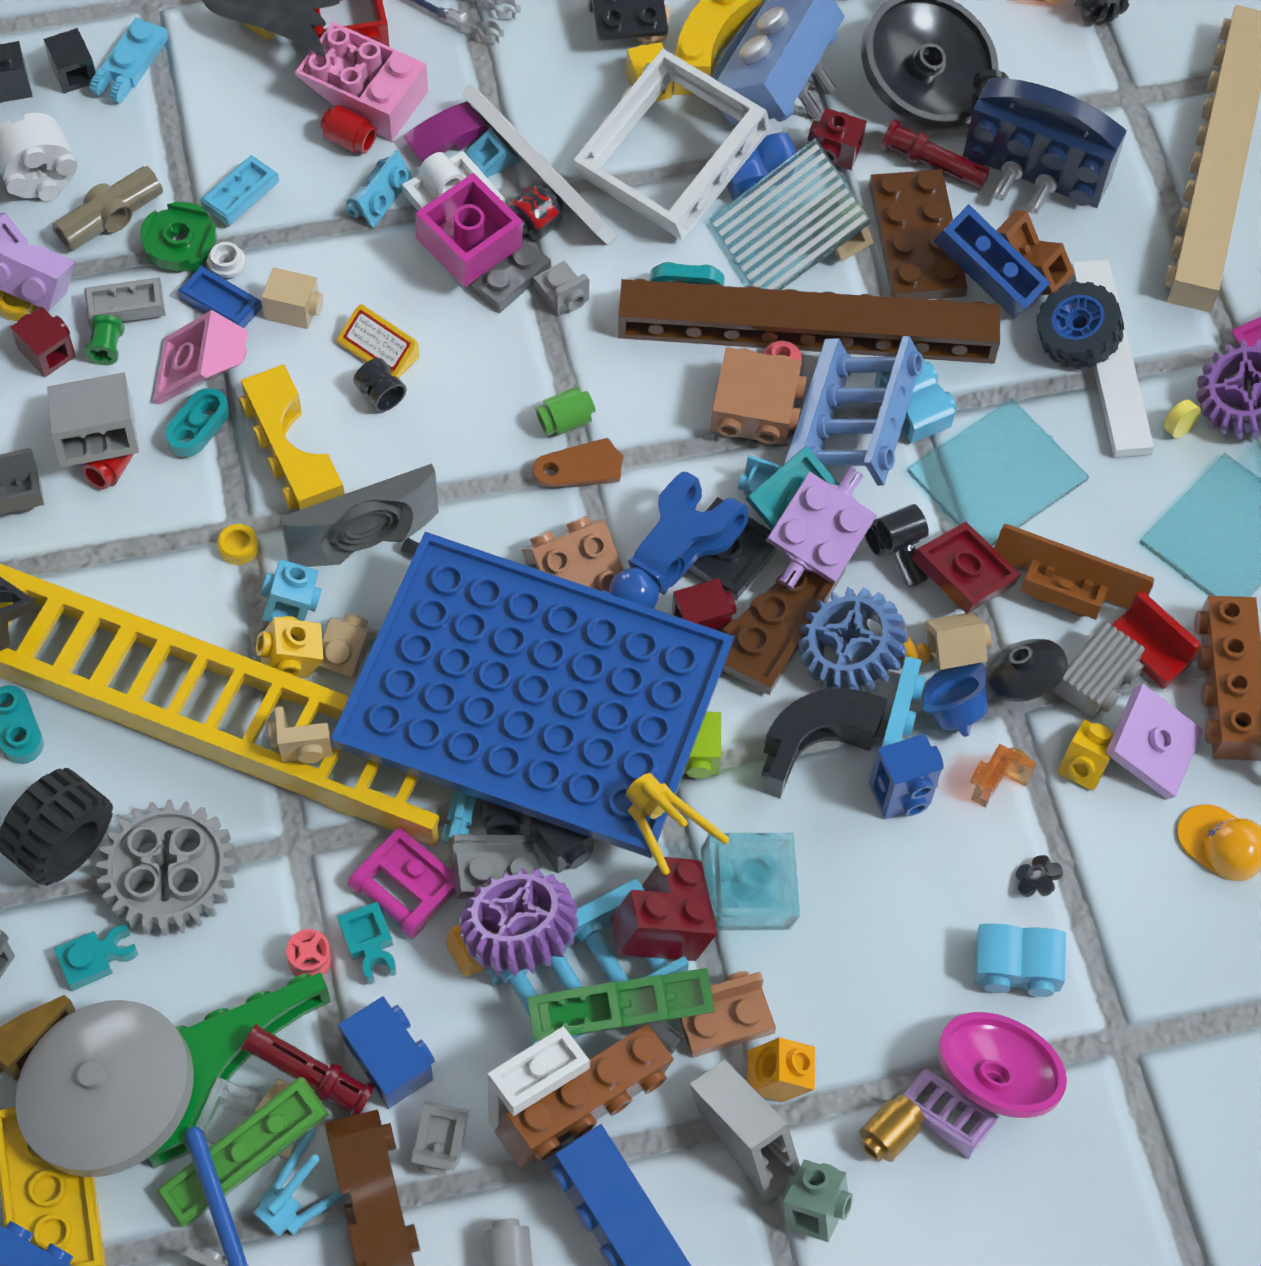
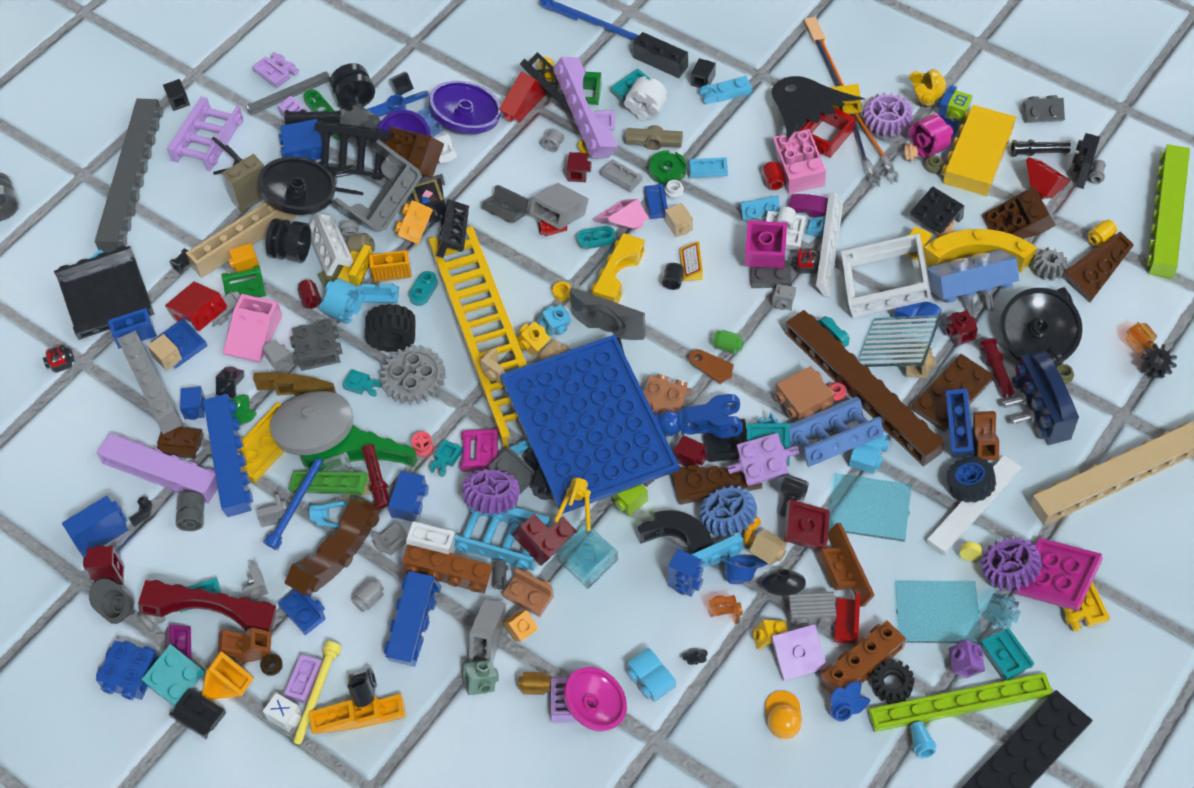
camera: 55 degrees right, 5 degrees down
(104, 339) = (598, 183): green bush -> none
(622, 1004) = (492, 550): green slope -> none

